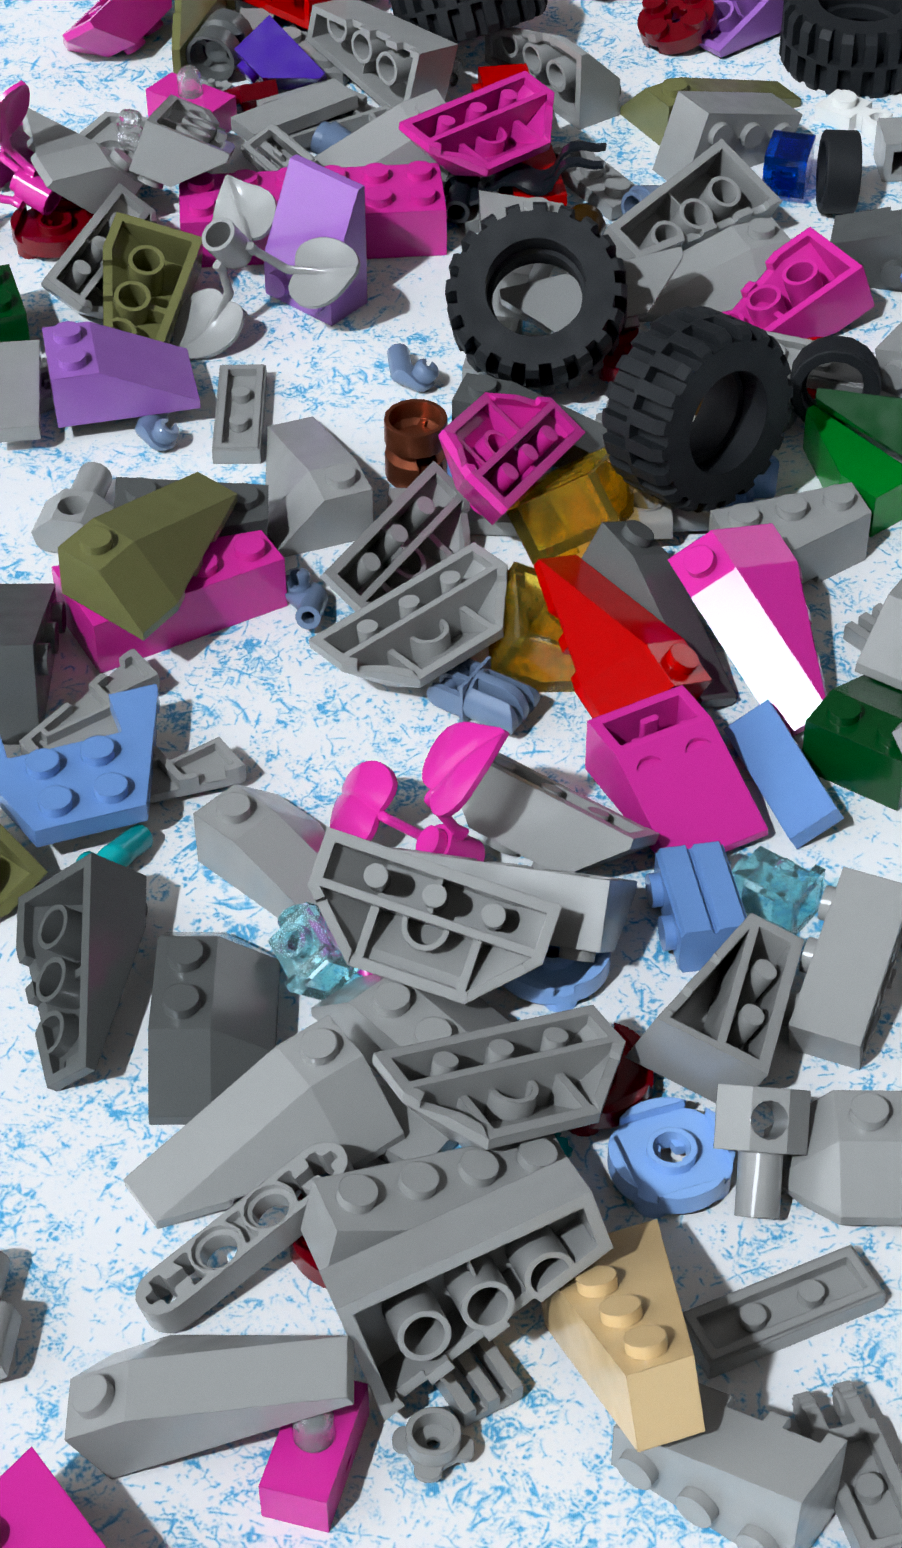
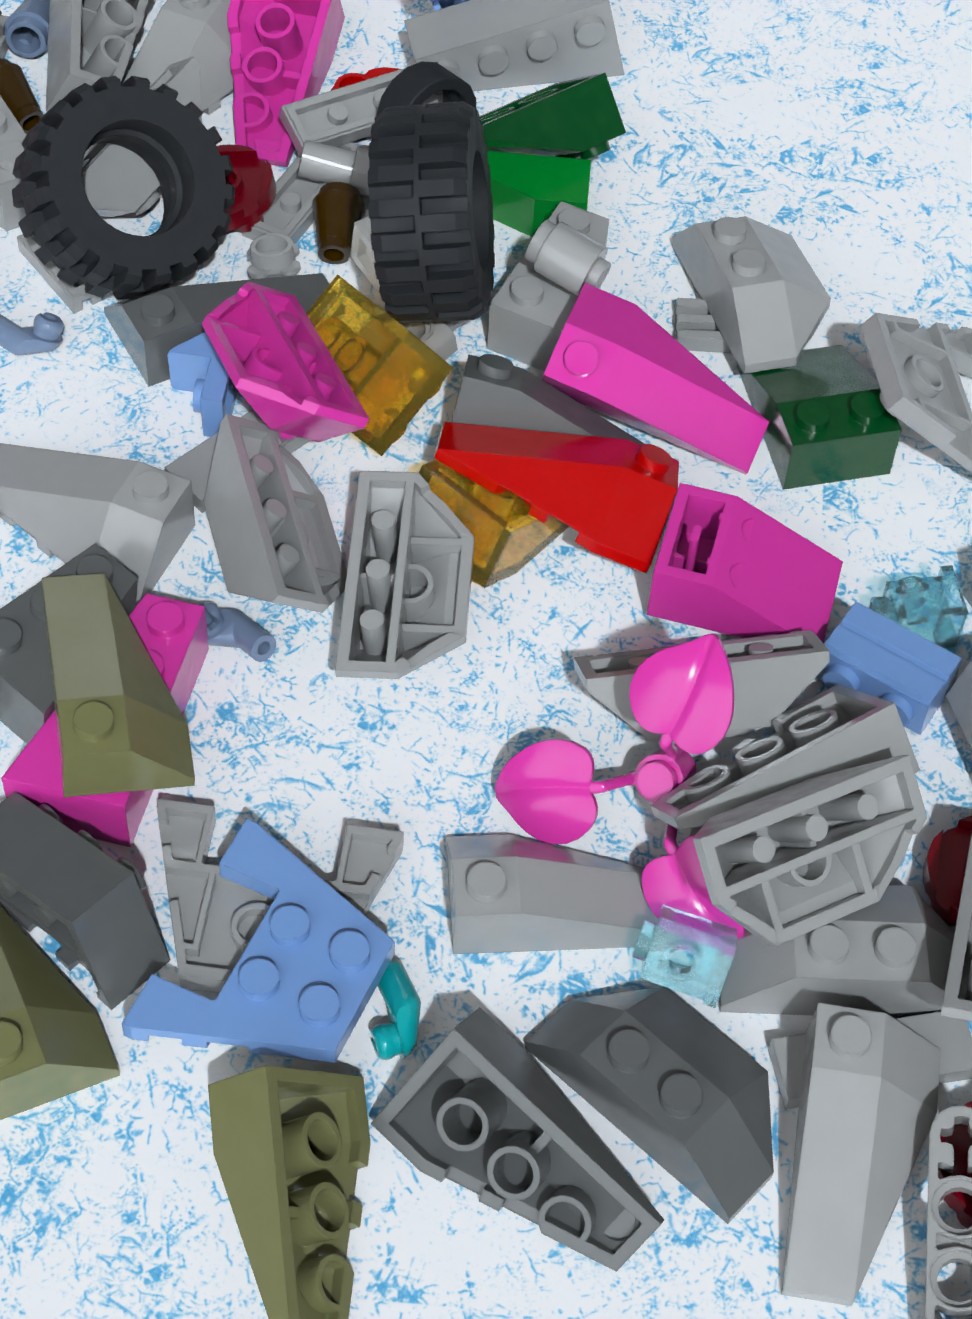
camera: 50 degrees left, 10 degrees up
(413, 439) = (147, 407): copper wheel -> none
(484, 695) = (510, 610): sand blue arm -> none
(783, 774) = (802, 503): medium blue tile -> none
(784, 502) = (567, 256): none -> light grey brick

